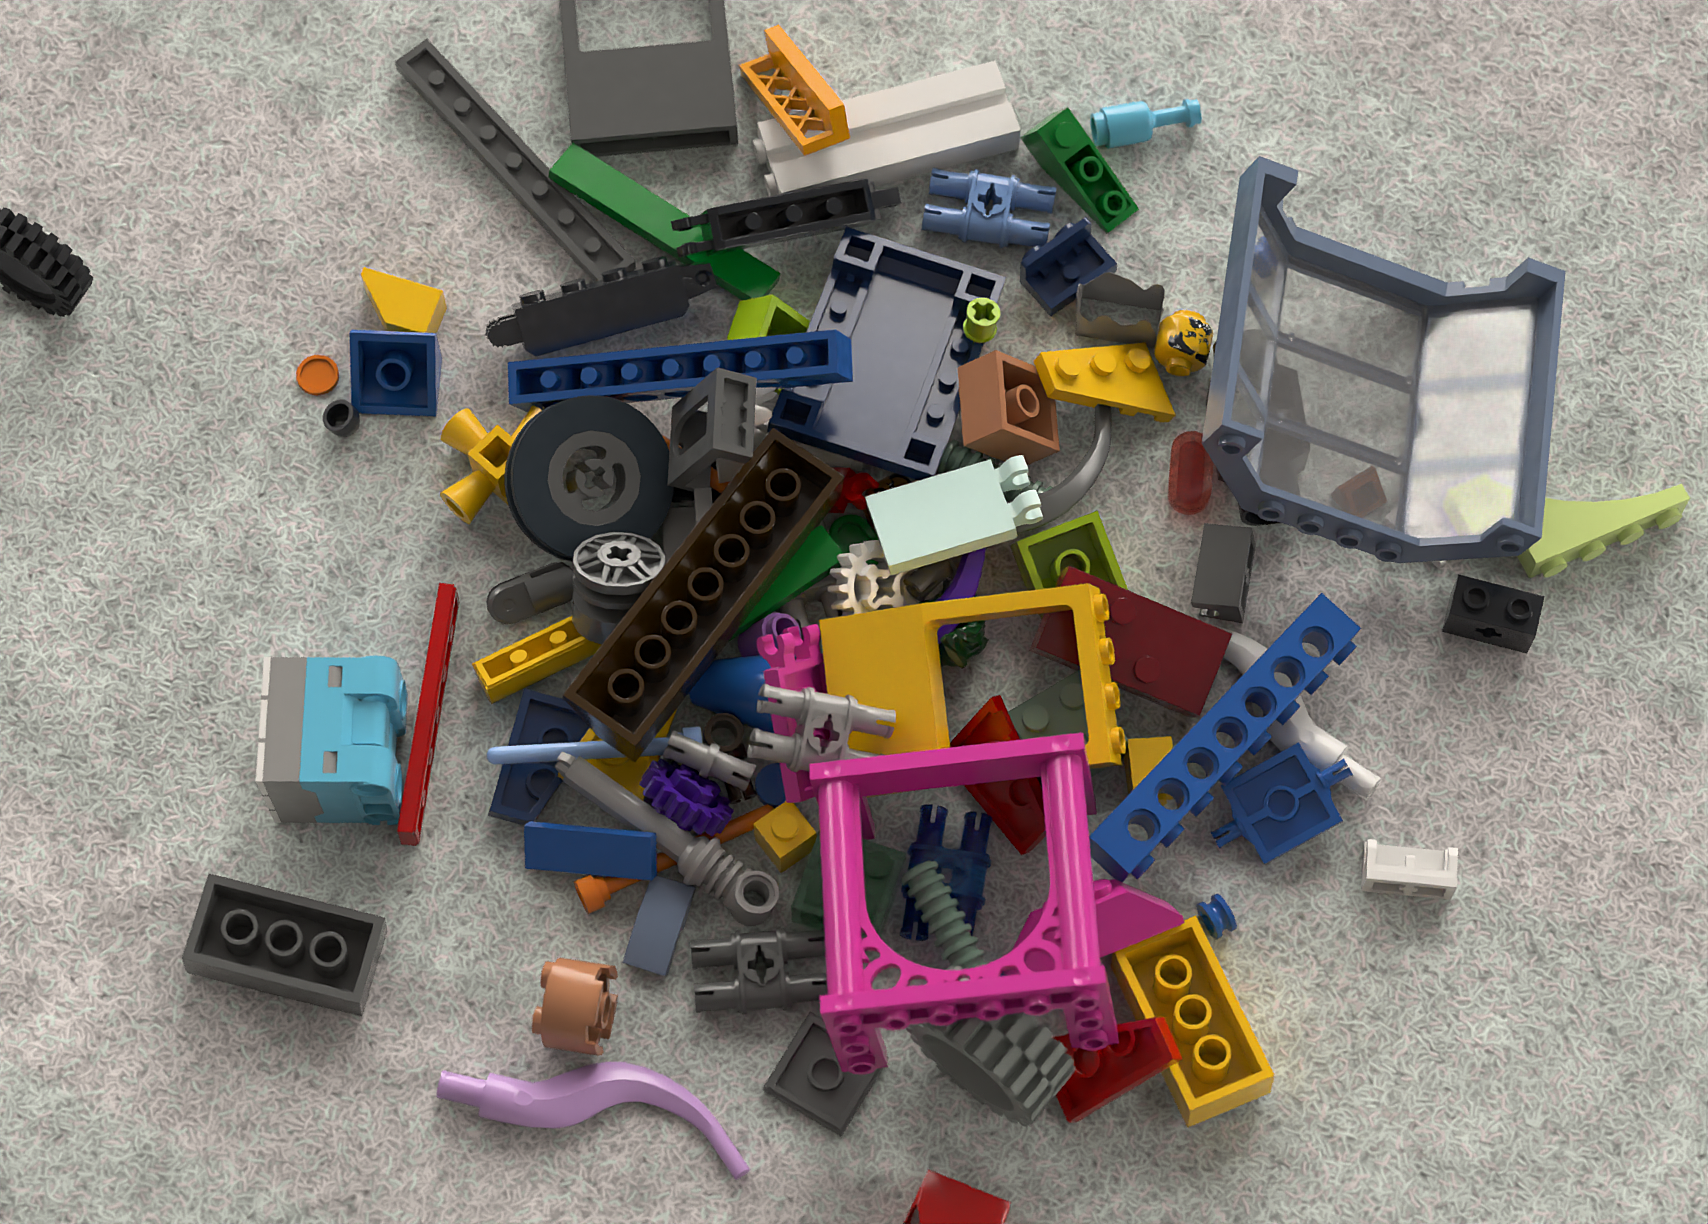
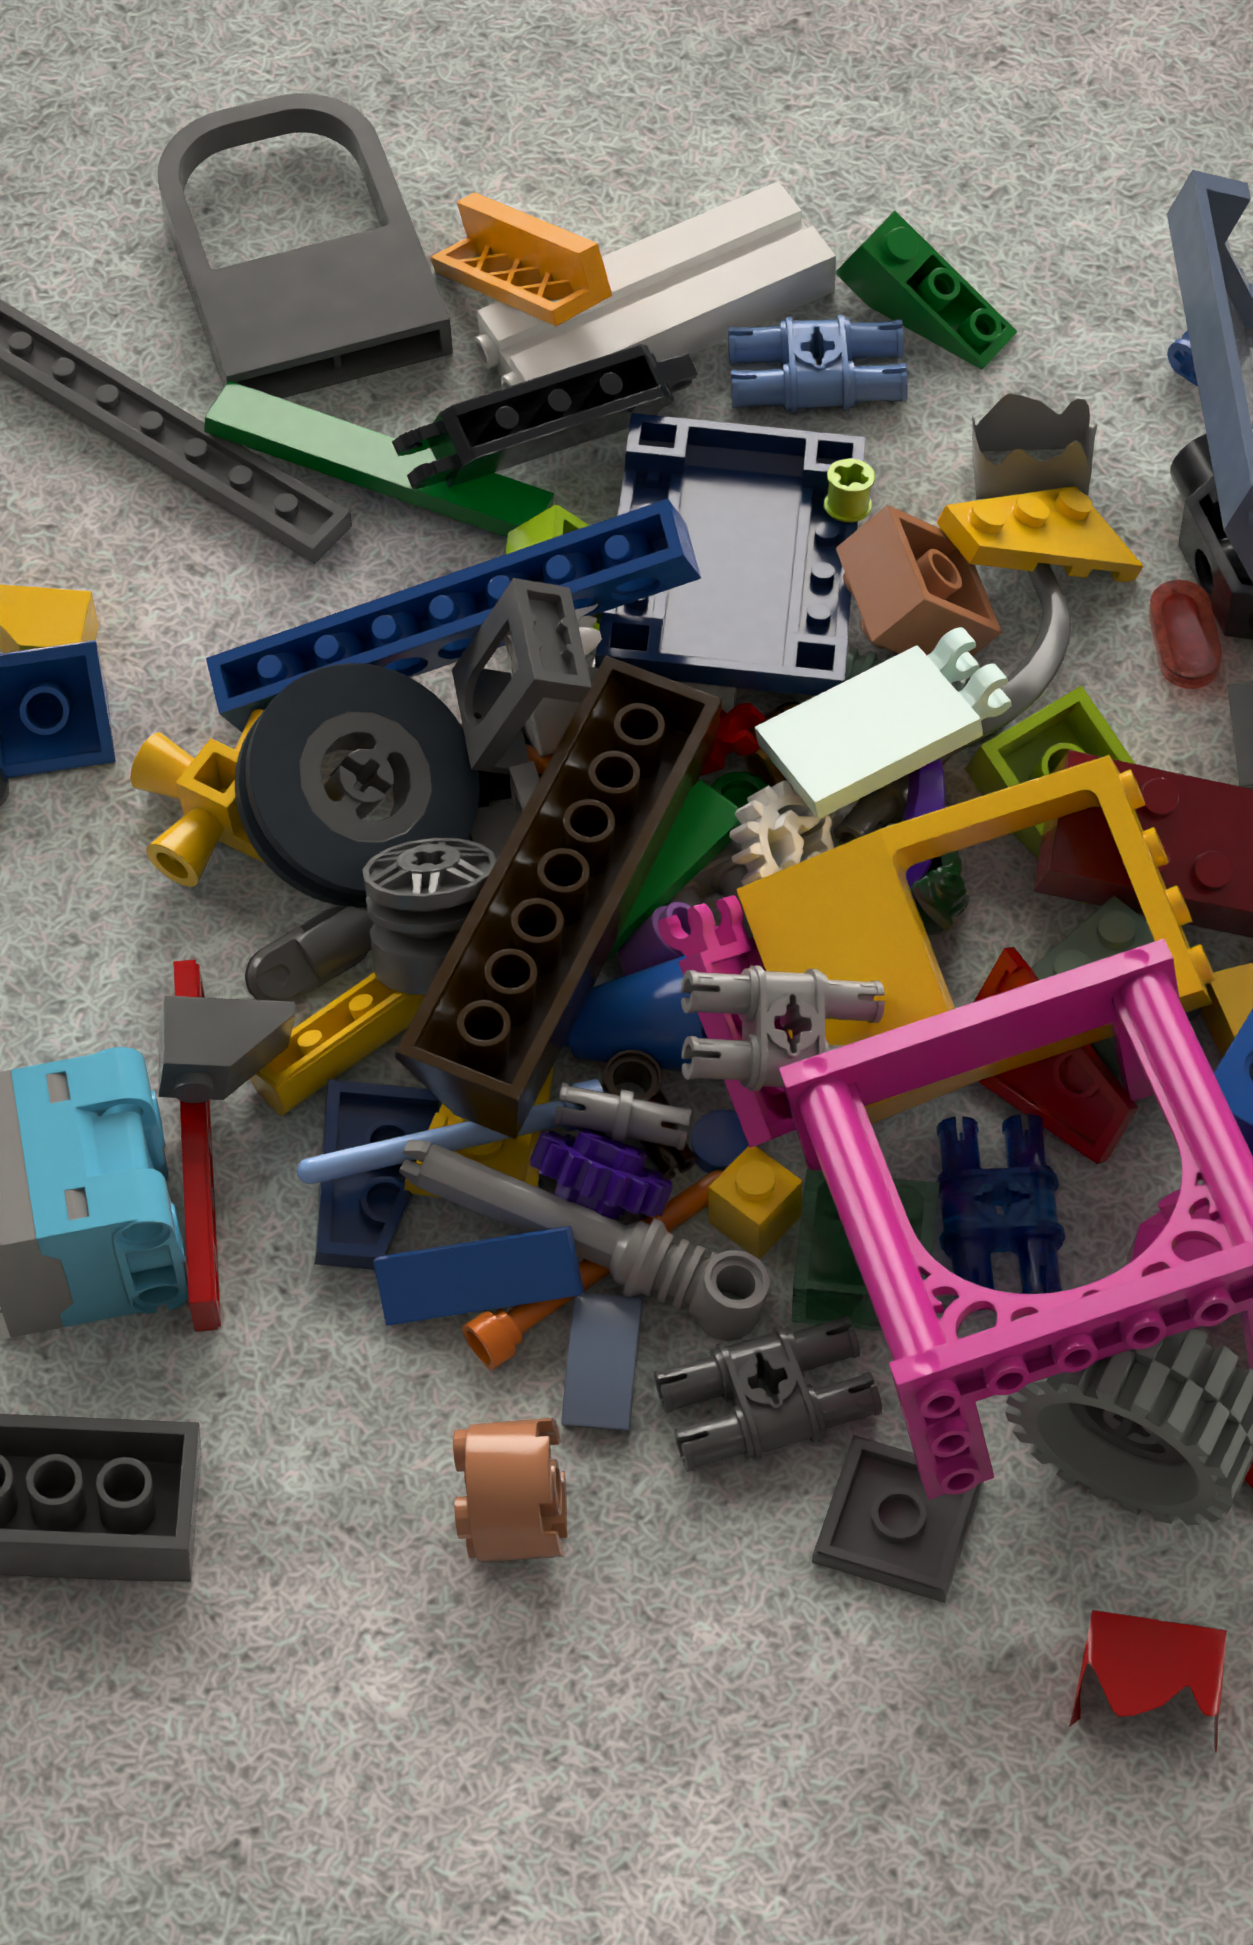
camera: 10 degrees left, 10 degrees down
(452, 654) = (218, 1044): none -> dark grey slope
(582, 1094) = (547, 1621): lavender animal -> none
(602, 307) = (318, 575): black hinge -> none
(943, 916) = (1004, 1242): sand green piece -> none
(1059, 266) = (933, 414): dark blue bracket -> none
(1135, 123) = (986, 227): medium azure piece -> none
(1183, 342) = (1129, 470): yellow head -> none

